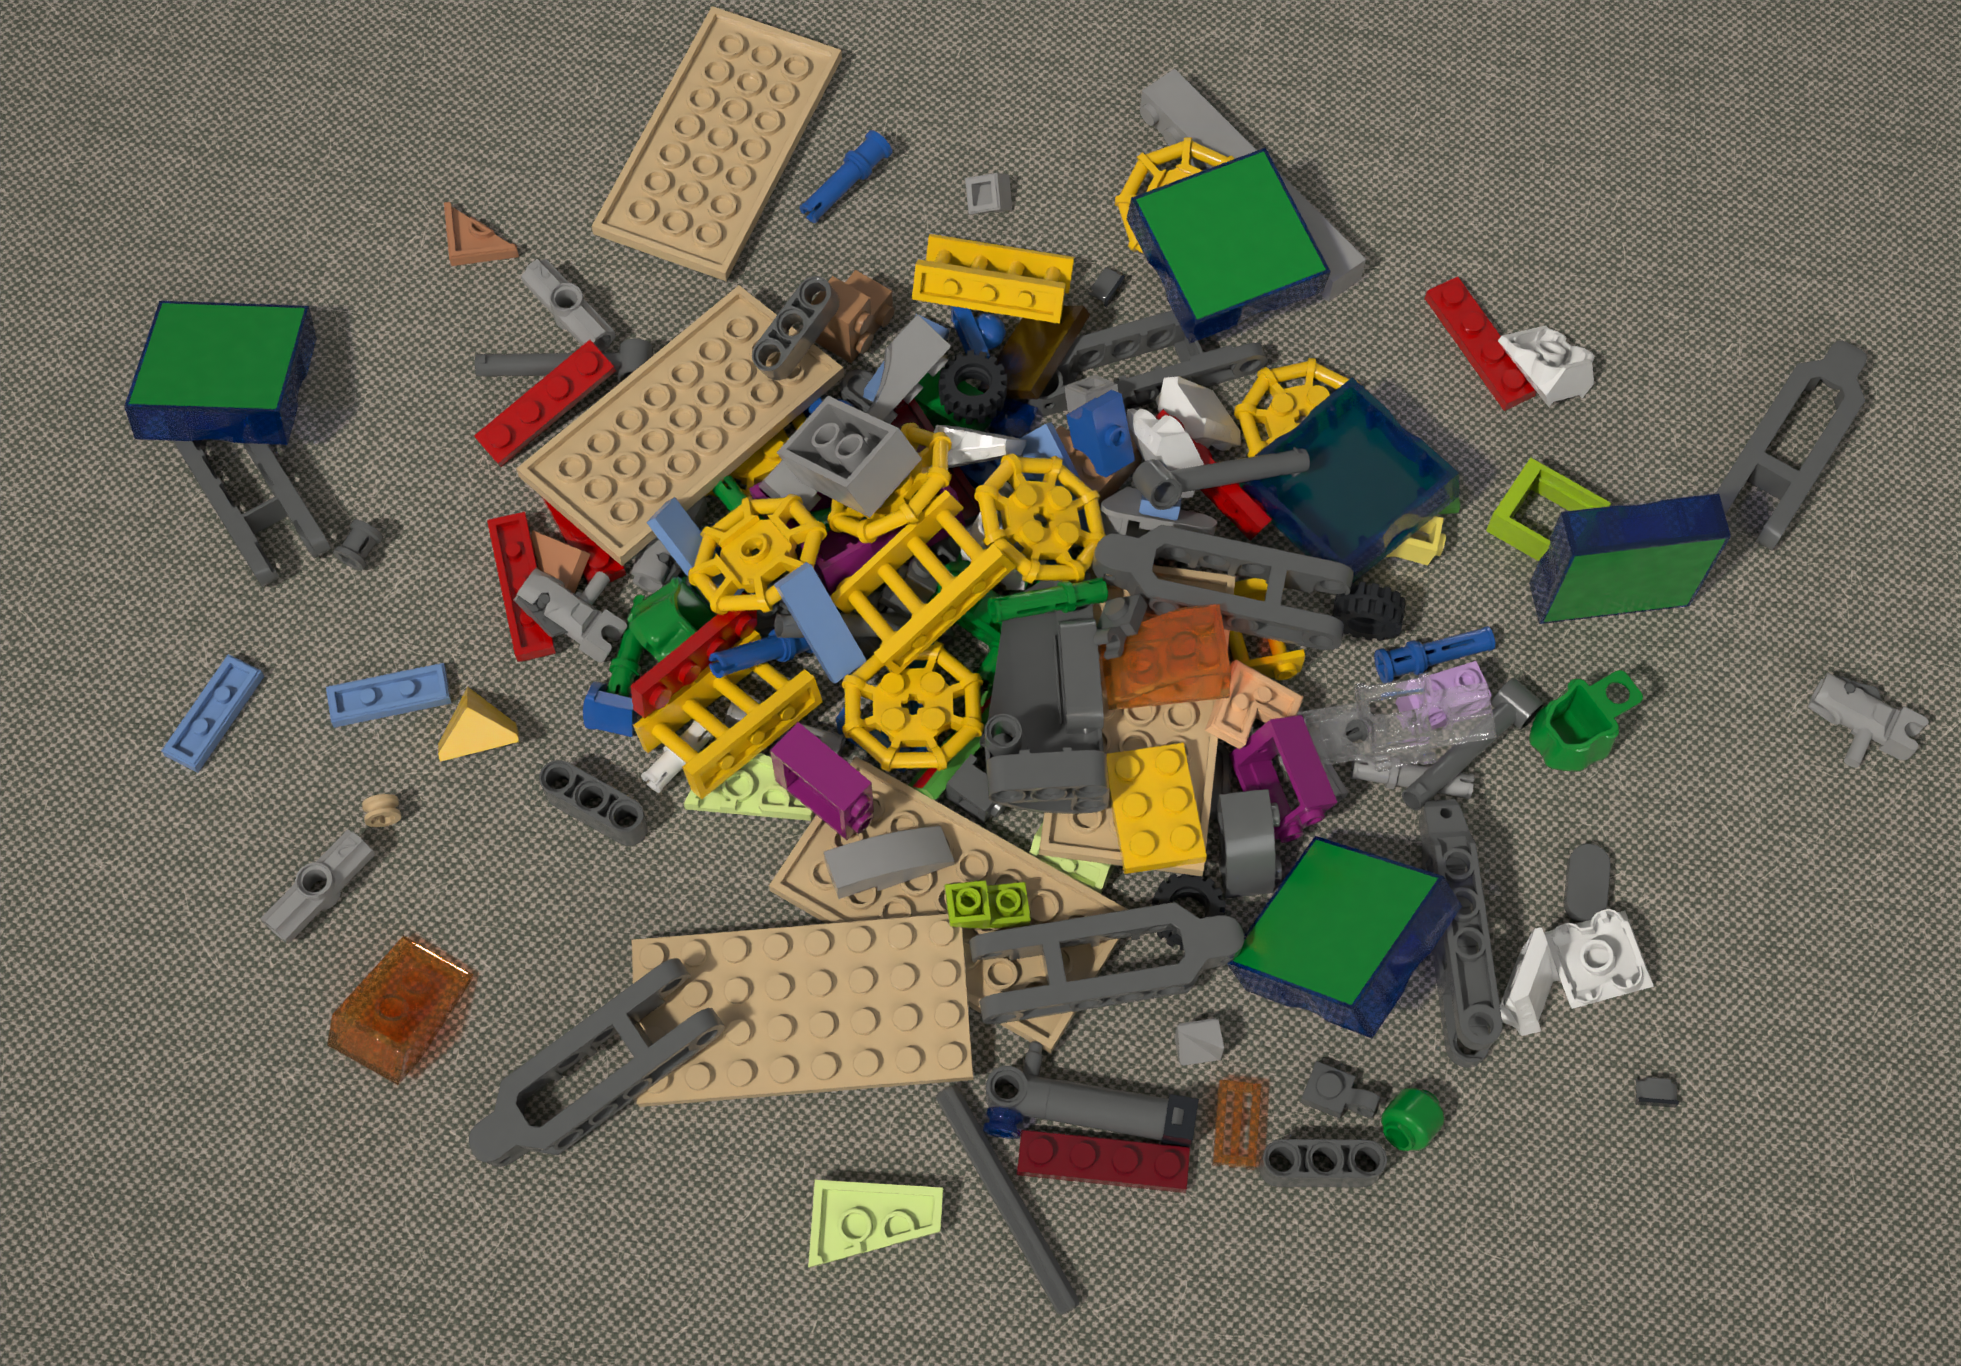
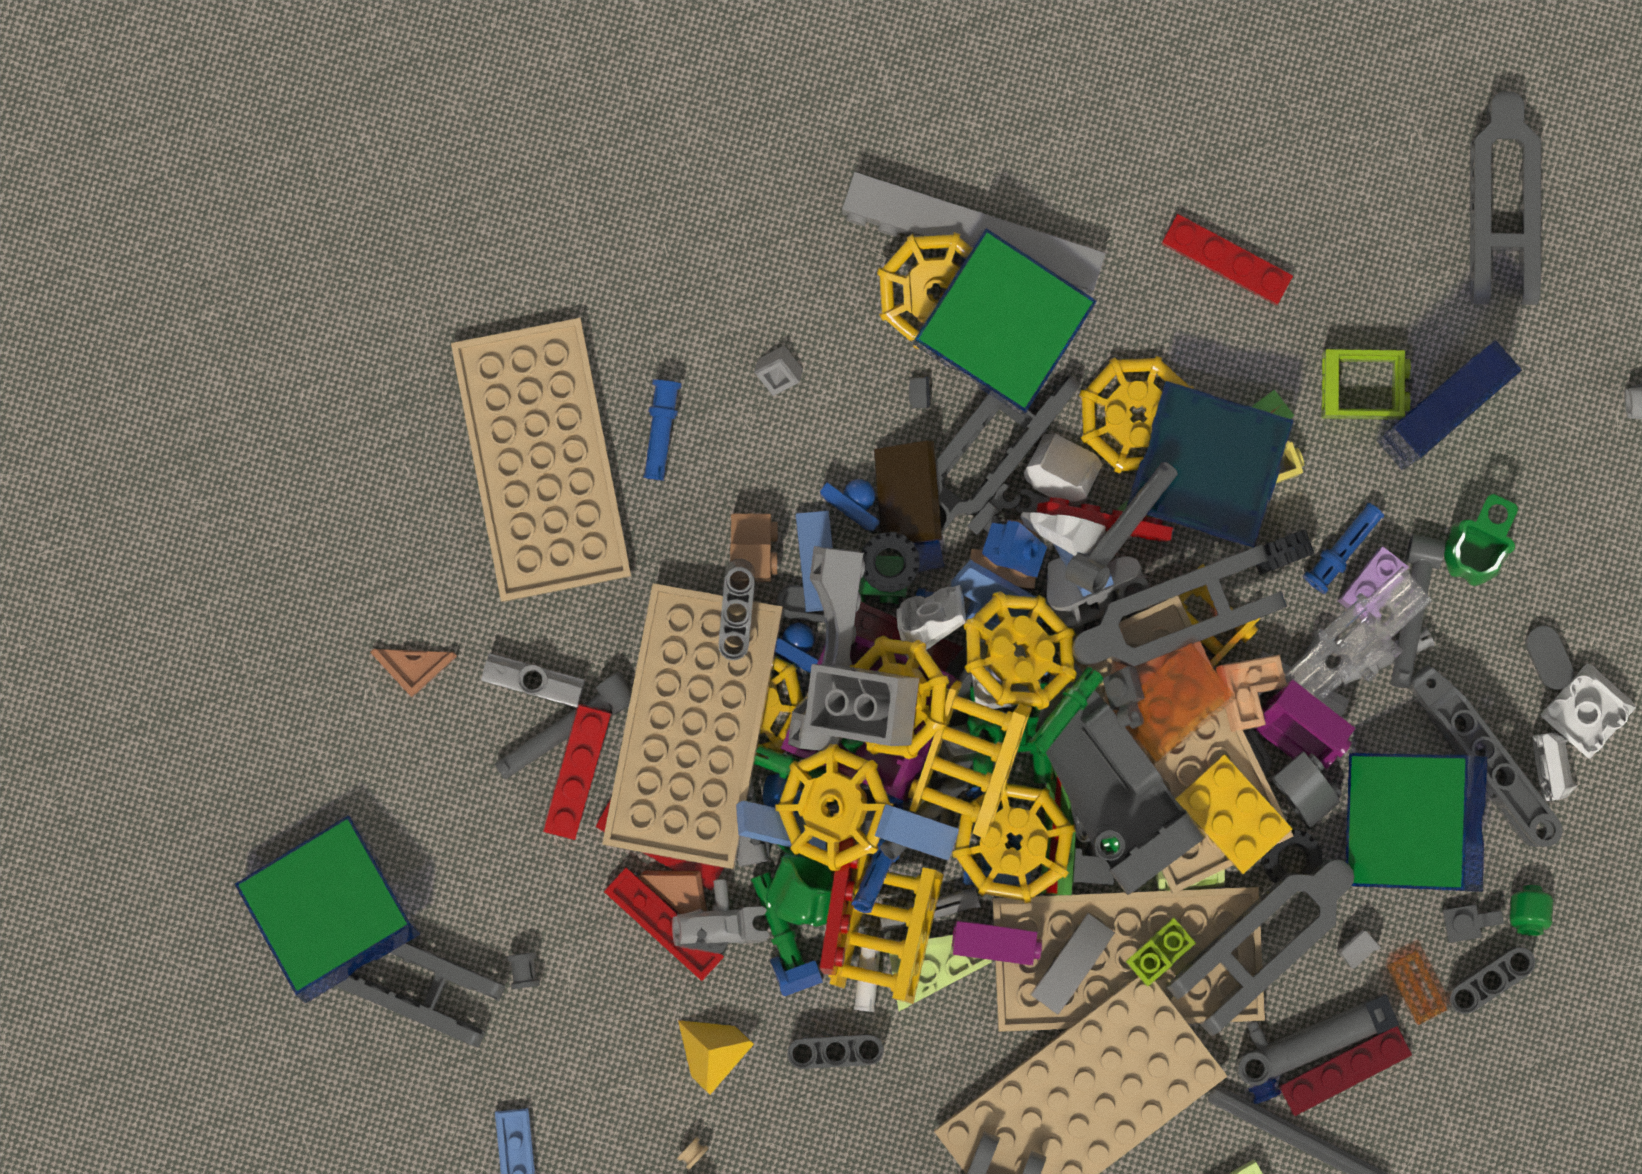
camera: 35 degrees left, 20 degrees up
(388, 695) = (629, 1065): medium blue tile -> none
(993, 278) = (848, 477): yellow fence -> none
(1087, 389) = (981, 512): light grey slope -> none
(1550, 363) = (1289, 249): white slope -> none

